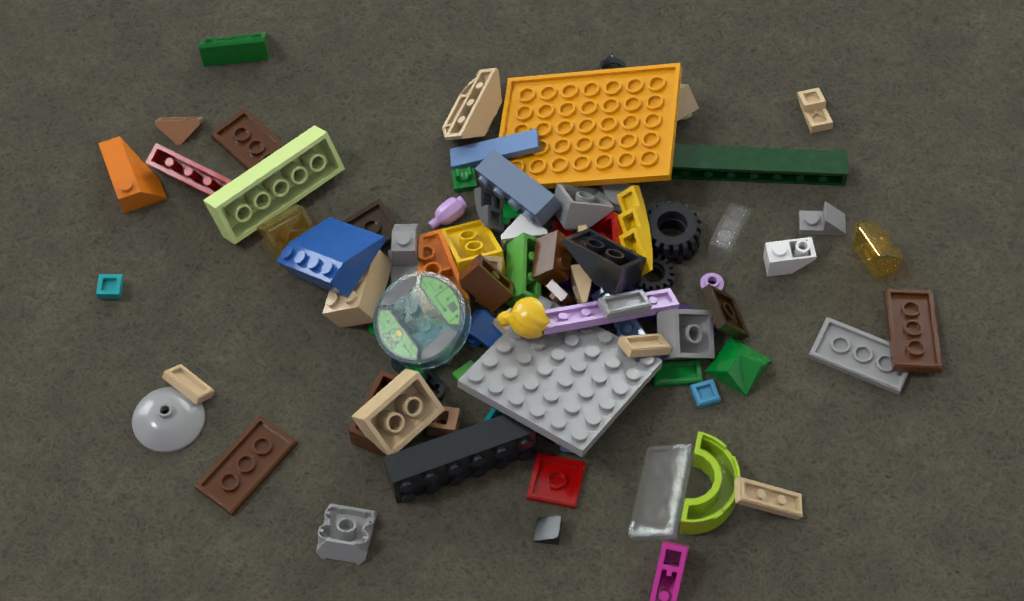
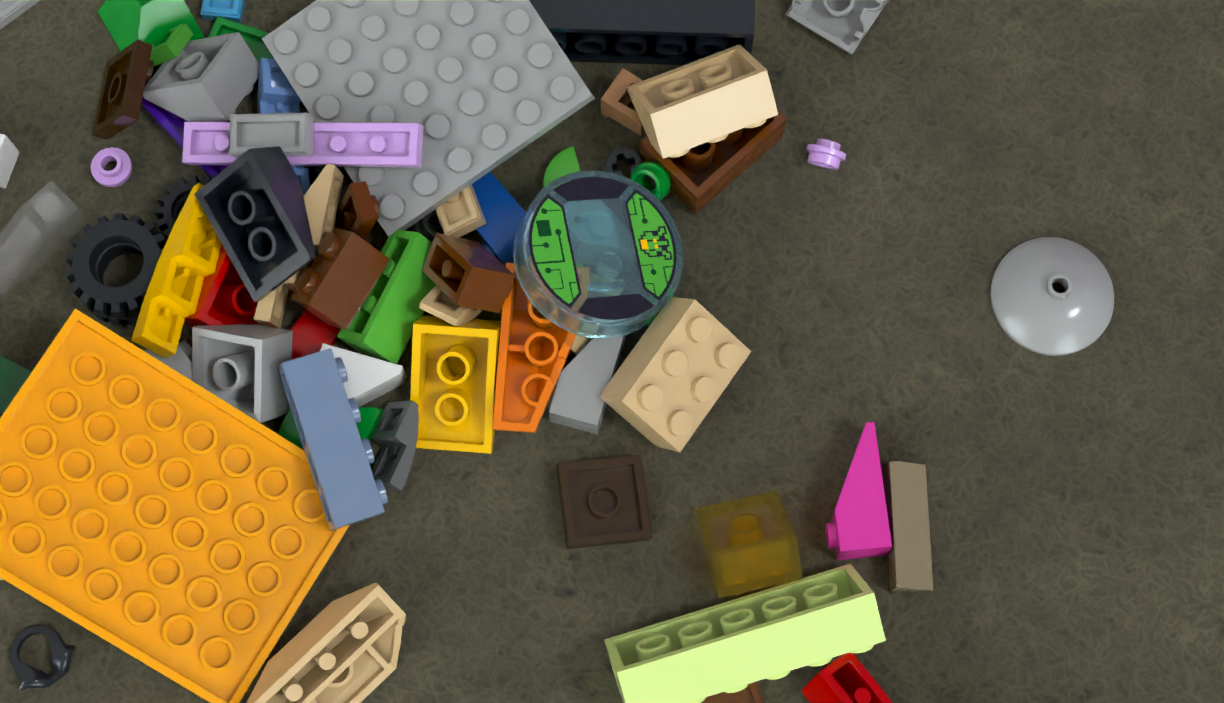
camera: 160 degrees left, 15 degrees up
(110, 286) = (1088, 577): teal plate -> none
(188, 384) = (1005, 334): tan tile -> none
(210, 276) = (909, 527): none -> dark tan slope
(238, 269) = (861, 515): none -> dark pink slope
(246, 465) = (953, 168): reddish brown tile -> none
(321, 438) = (825, 154): none -> lavender plate
(332, 255) = (697, 433): blue slope -> none
(404, 244) = (565, 413): light grey slope -> none
(448, 212) = (461, 478): lavender plant -> none
(464, 179) = (406, 537): green tile -> none
(507, 146) = (326, 556): medium blue tile -> none
(525, 318) = (442, 149): yellow hair -> none
(644, 345) = (276, 64): tan tile -> none
(716, 348) = (172, 46): none -> bright green tile

